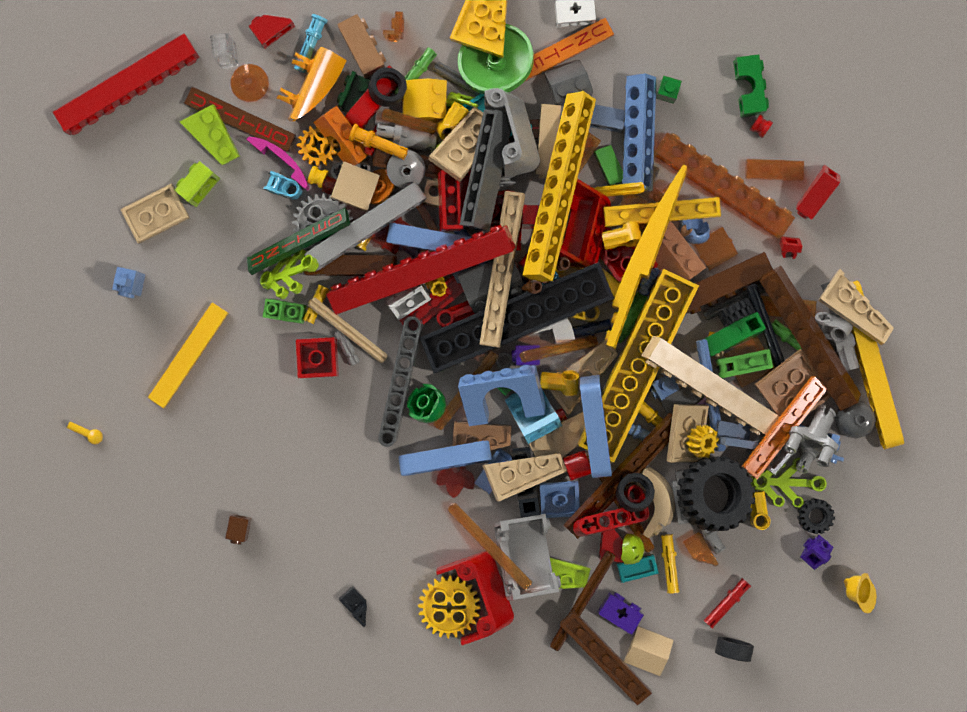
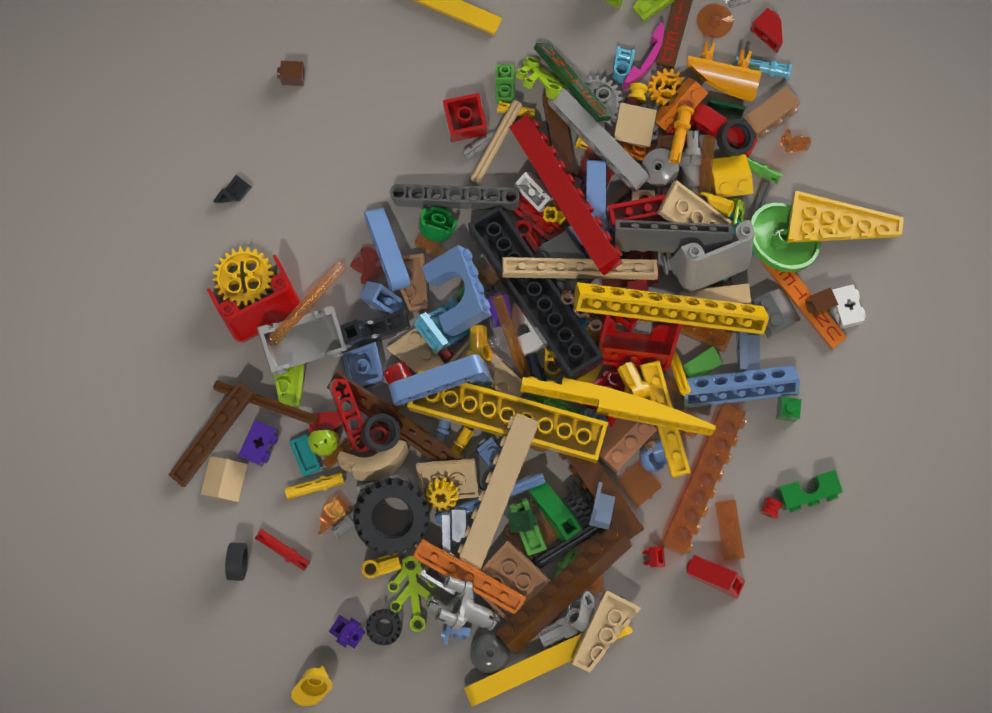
camera: 80 degrees right, 10 degrees down
(518, 475) = (381, 319): tan wing -> none
(568, 36) = (821, 302): none -> reddish brown brick
(740, 368) = (522, 521): none -> dark green bracket
(744, 289) = (602, 509): none -> sand blue panel

